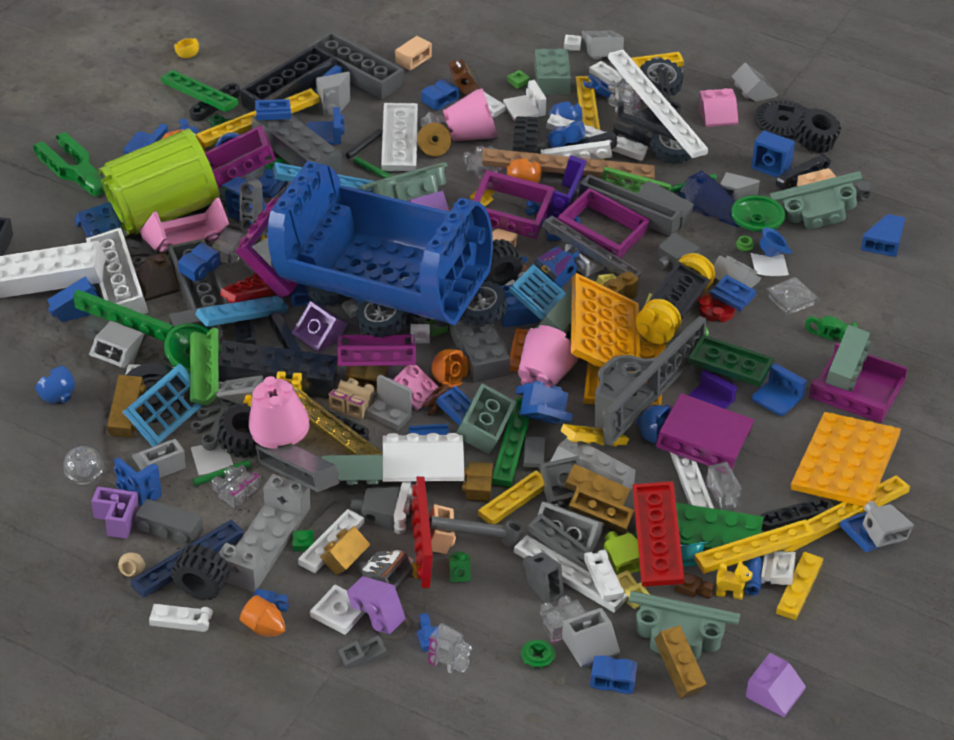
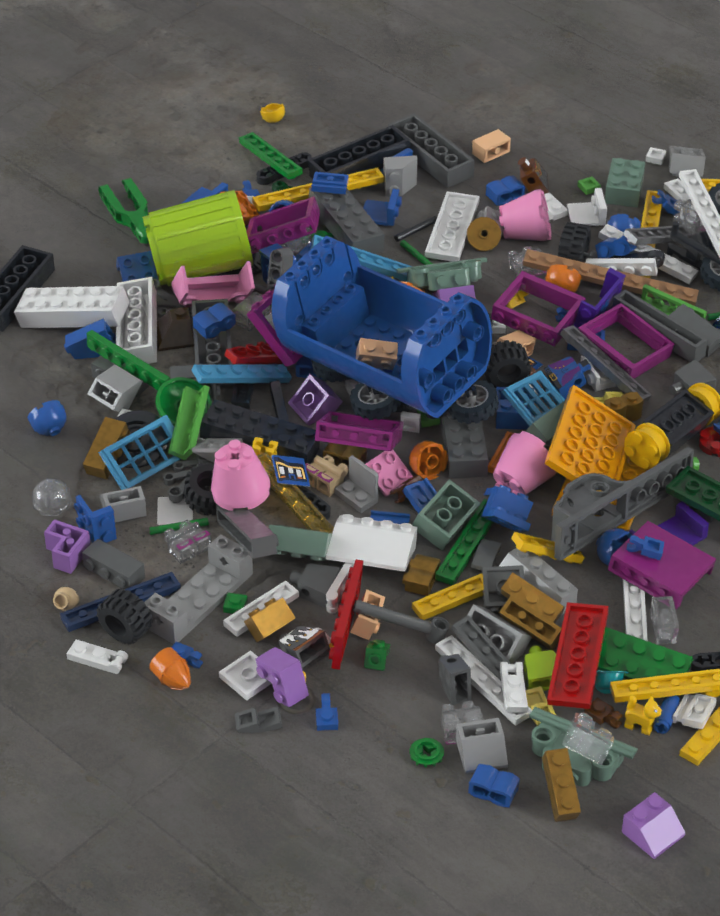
camera: 15 degrees right, 0 degrees up
(321, 399) = (290, 470): none -> sticker
(381, 269) = (377, 353): none -> light nougat brick
(448, 648) = (338, 730): clear hips -> none
(598, 118) = (652, 235): none -> flat silver plate
(692, 417) = (649, 546): none -> blue plate
(696, 614) = (586, 739): none -> clear brick

